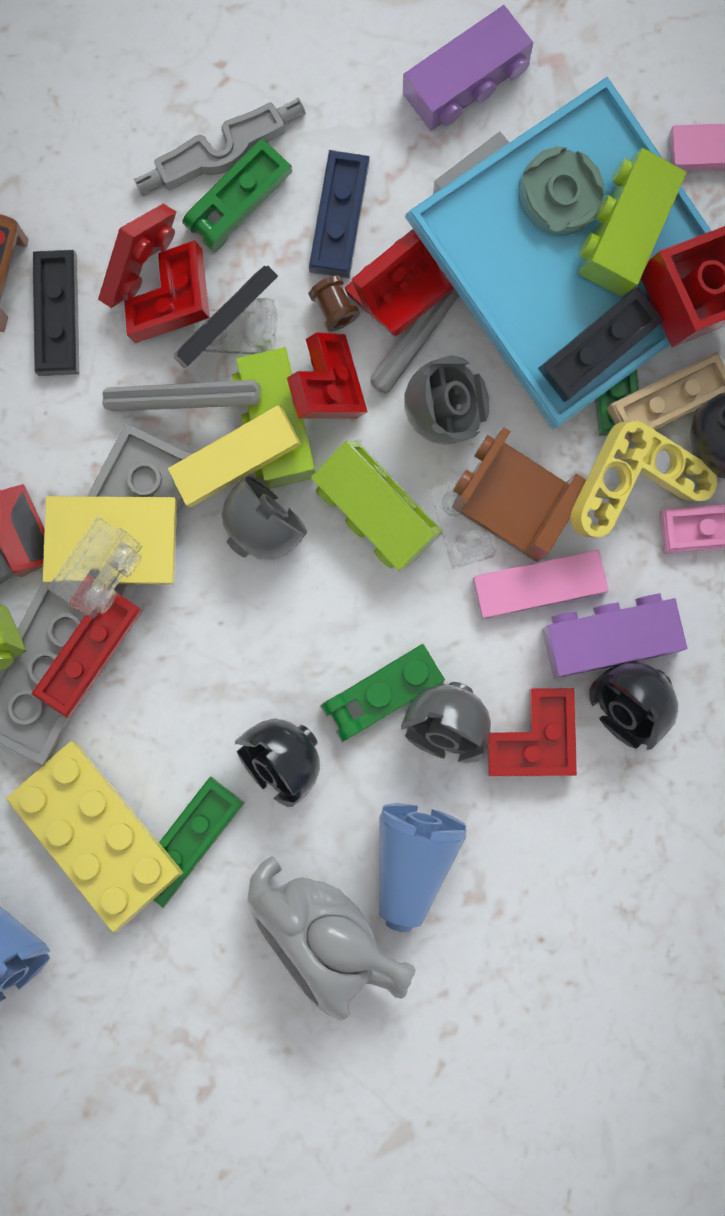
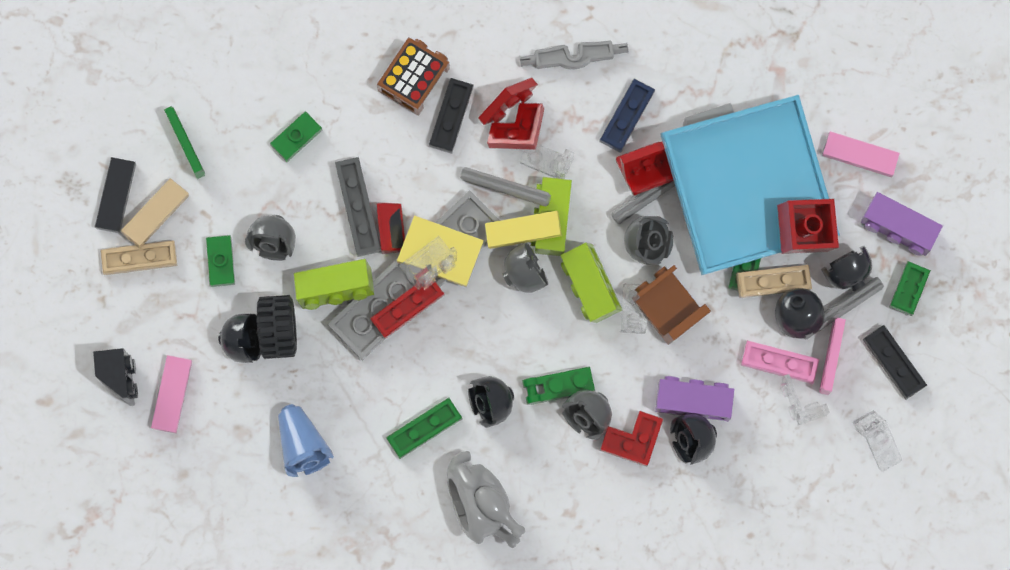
camera: 10 degrees right, 5 degrees down
(94, 836) = (376, 406): light yellow plate -> none
(224, 316) = (544, 151): black tile -> none
(237, 194) = (575, 85): green plate -> none
(333, 387) = (591, 209): red plate -> none
(334, 303) = (606, 164): reddish brown bush -> none
(414, 861) = (543, 480): medium blue cone -> none
(468, 68) = (726, 60): medium lavender brick -> none
(540, 584) = (665, 357): bright pink tile -> none
(561, 191) = (750, 148): sand green tile -> none
(600, 344) = (742, 238): black plate -> none
(630, 222) = (781, 178): lime brick -> none
(639, 460) = (743, 308): light yellow beam -> none

